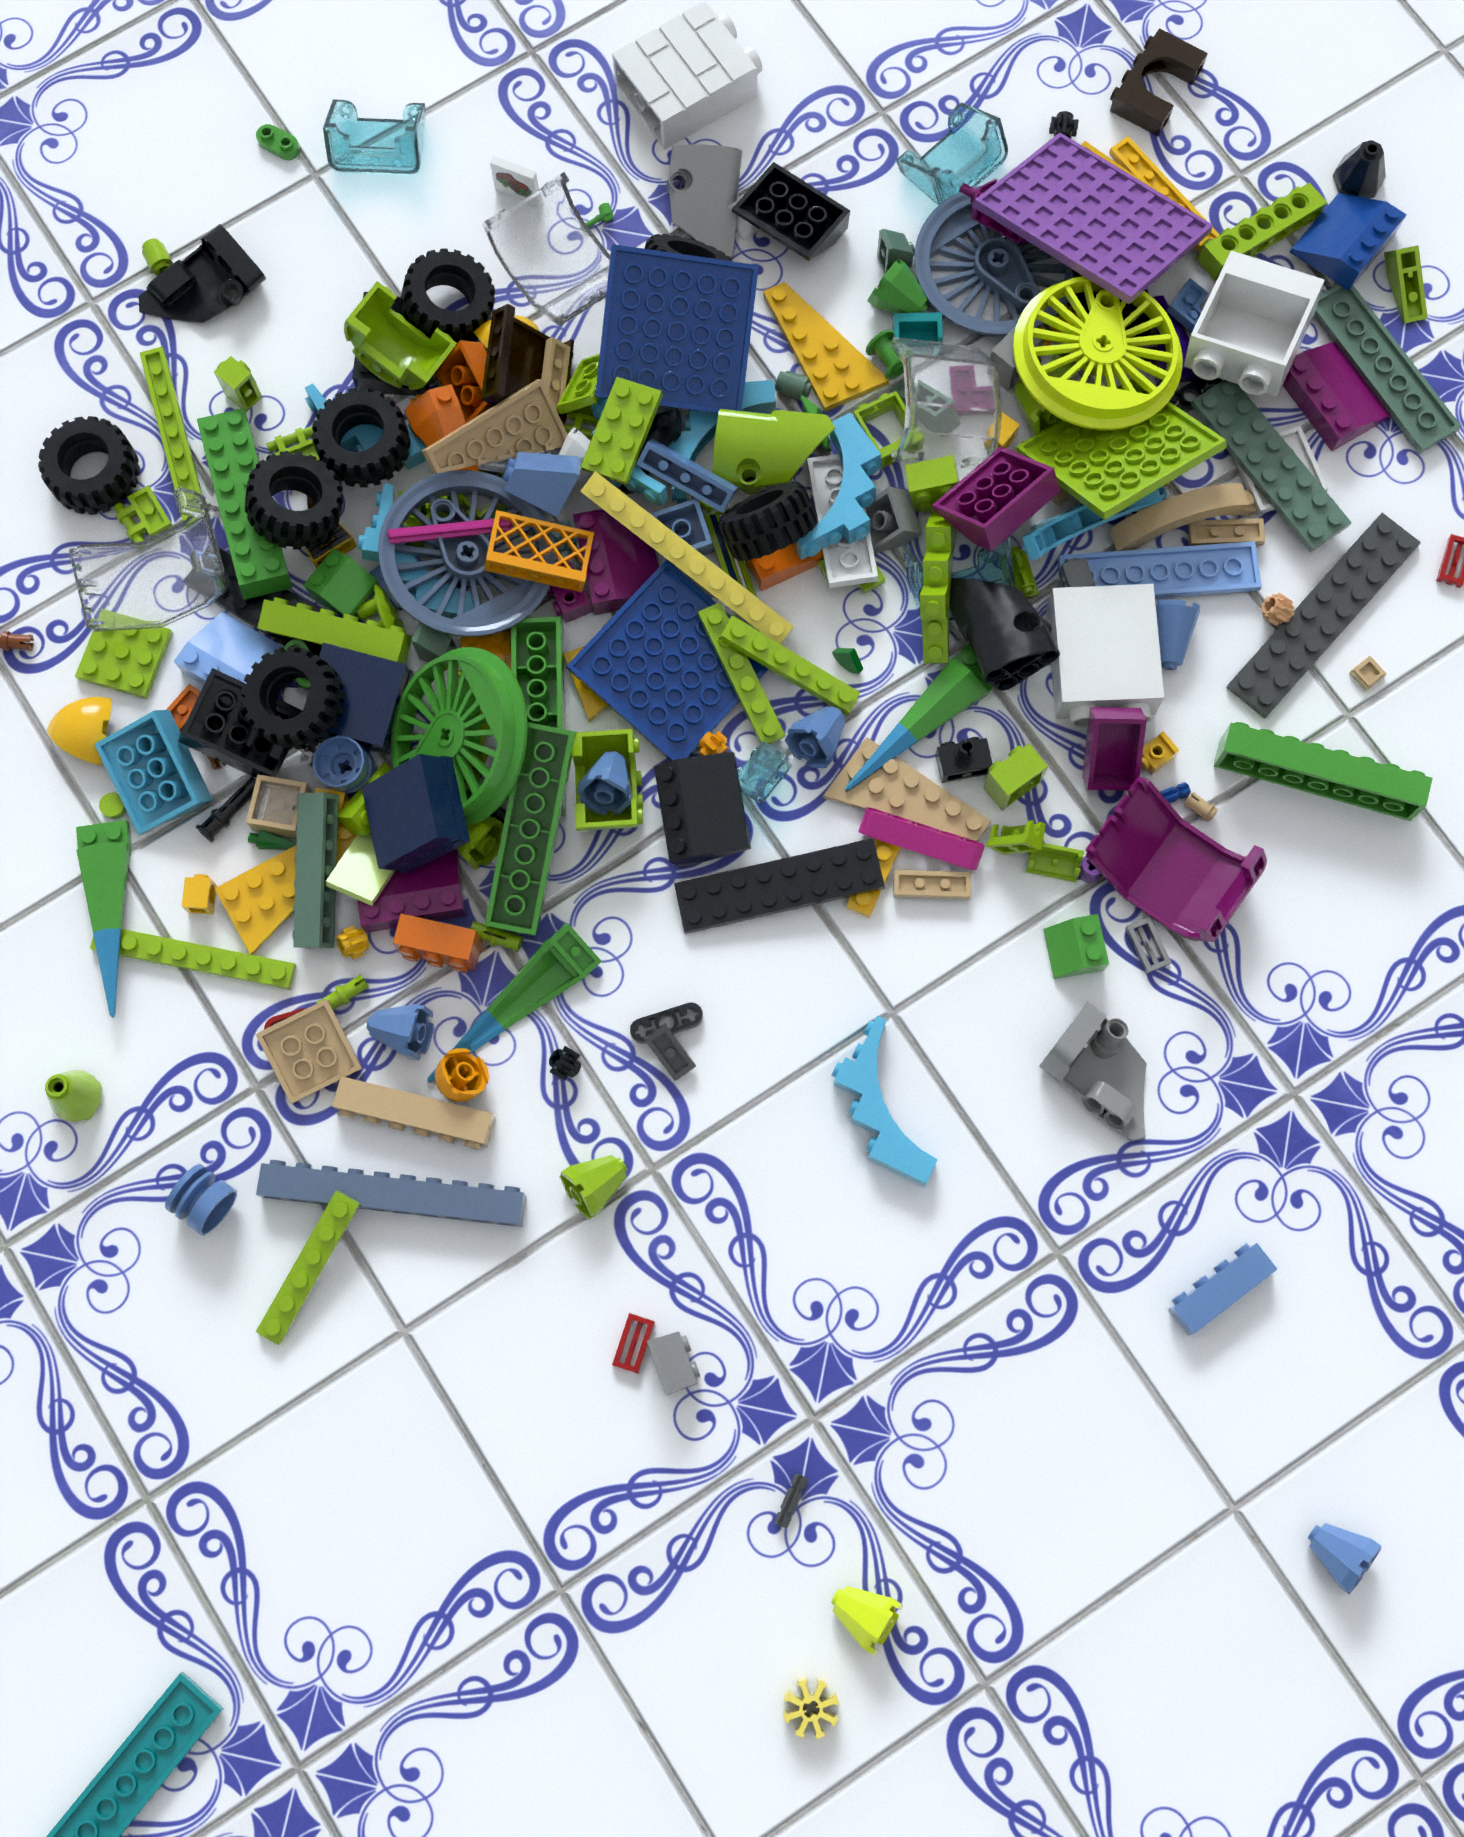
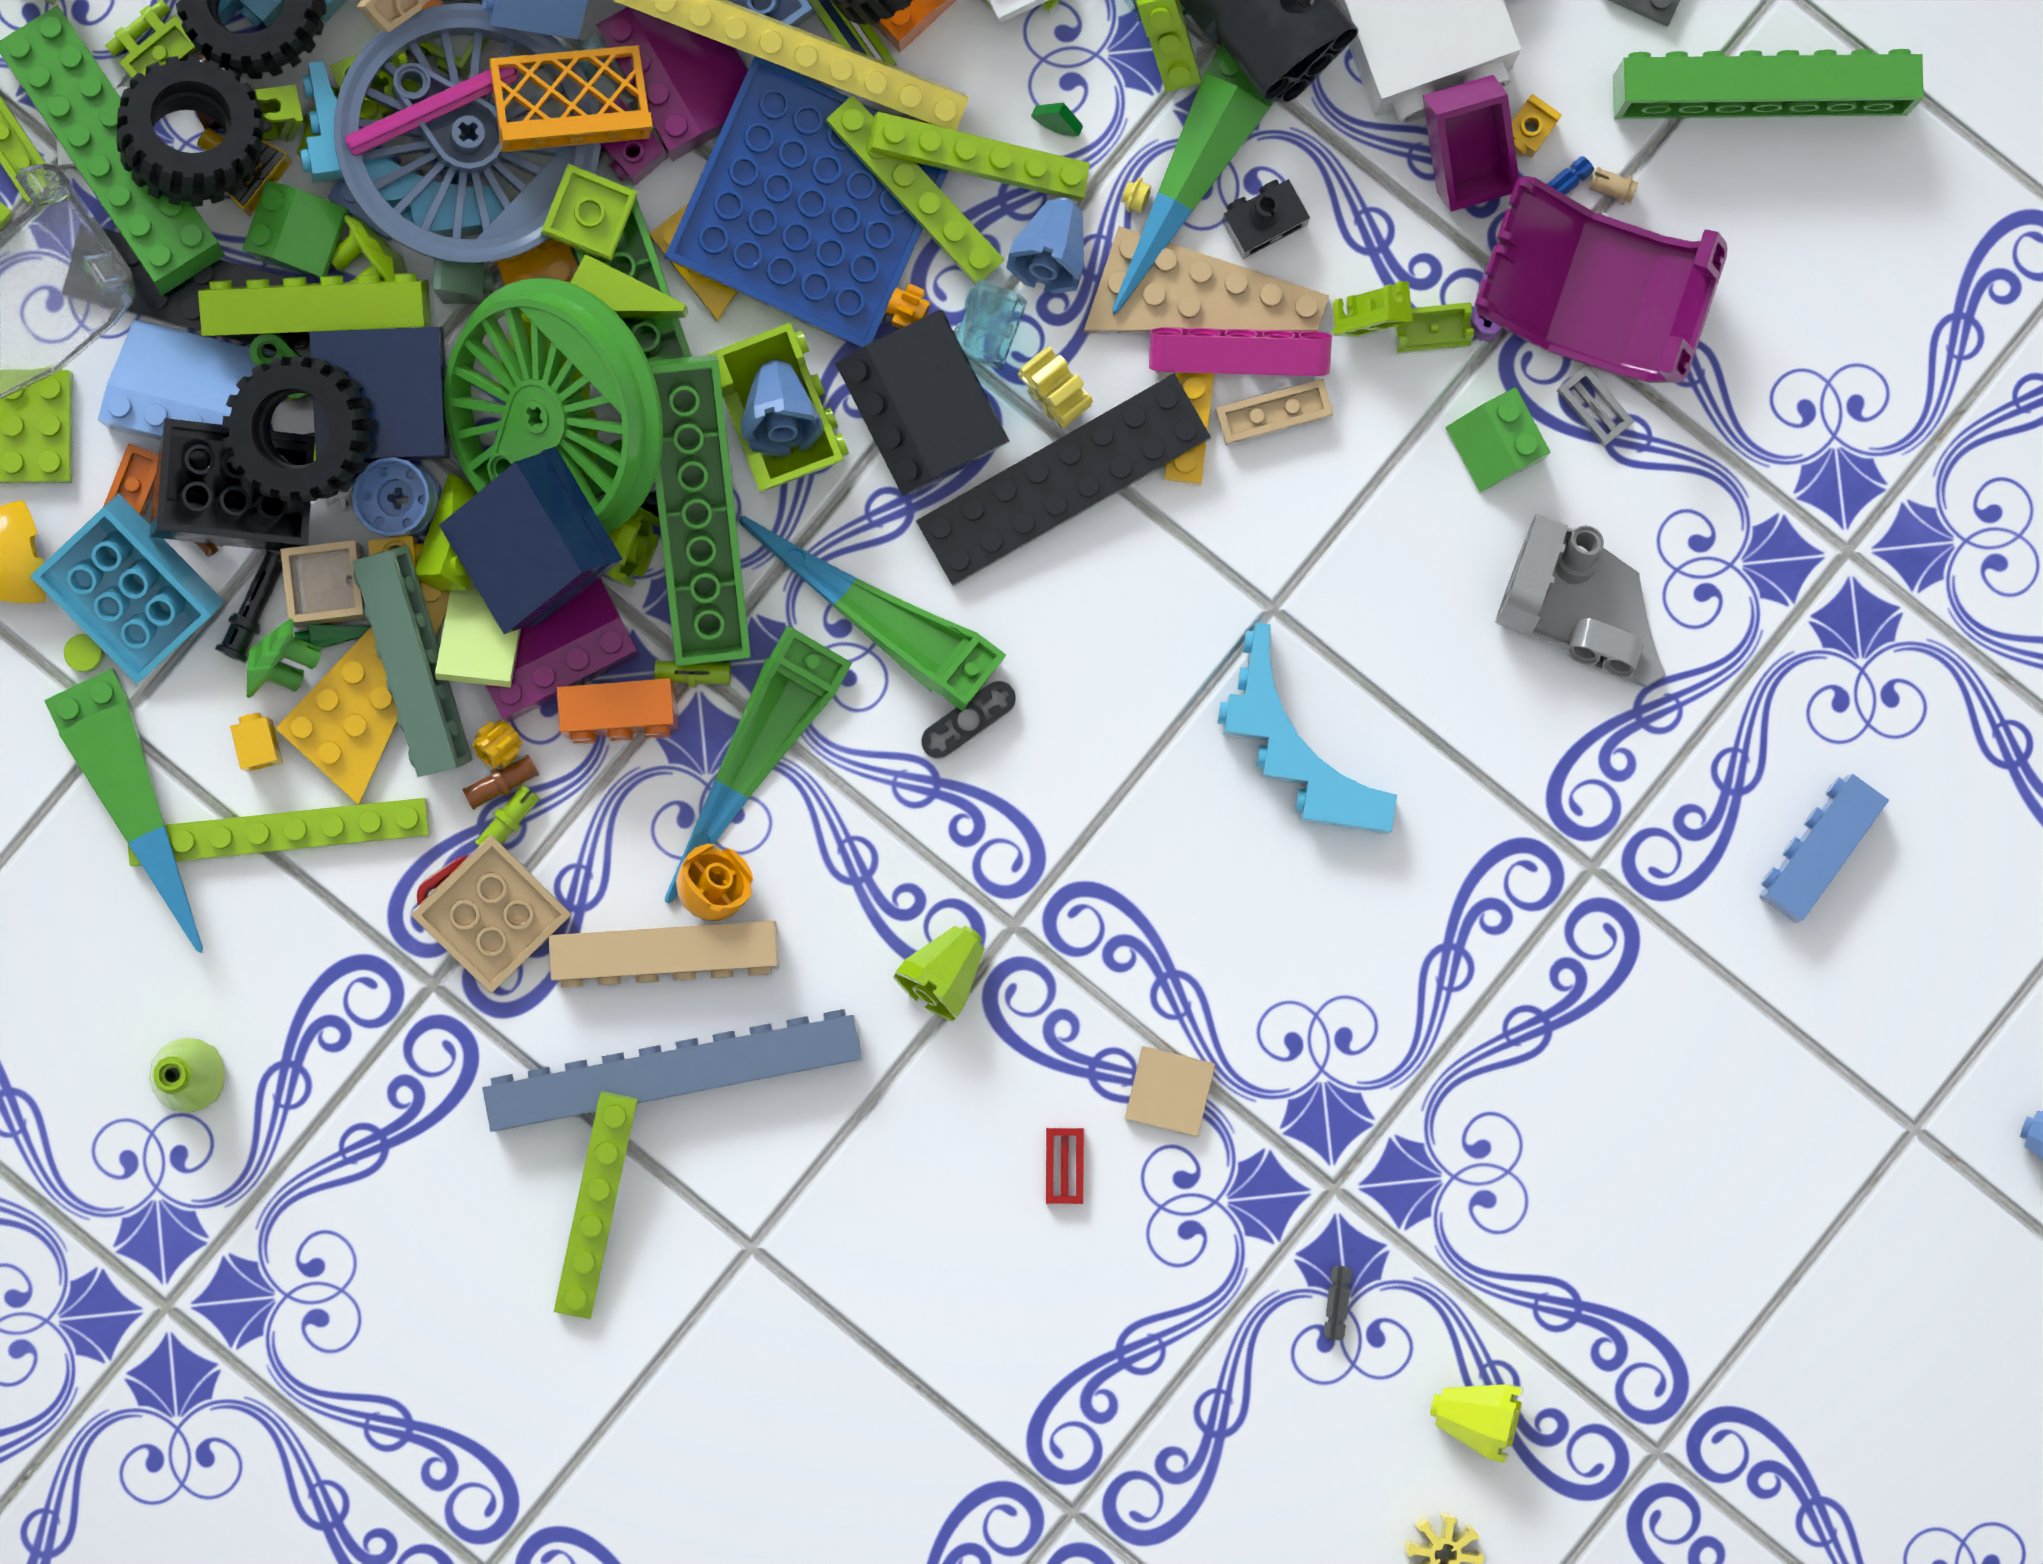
camera: 25 degrees left, 10 degrees up
(201, 1199) = (417, 1161): medium blue wheel -> none
(221, 845) = (265, 657): none -> bright green connector
(346, 968) = (500, 782): none -> dark orange pin
(356, 507) = (282, 110): none -> lime hinge
(403, 1029) = (609, 843): medium blue cone -> none
(527, 624) = (589, 213): none -> lime plate
(533, 680) = (624, 293): none -> lime slope
(565, 1063) = (848, 820): black gear -> none
(654, 965) = (925, 645): none -> bright green plate
(670, 1052) = (988, 760): dark grey plate -> none
(672, 1362) = (1127, 1175): light grey slope -> none
(721, 1314) = (1170, 1091): none -> tan tile
(792, 824) = (1055, 387): none -> light yellow gear
(884, 721) = (1136, 195): none -> light yellow plate
(1015, 775) = (1346, 222): lime brick -> none

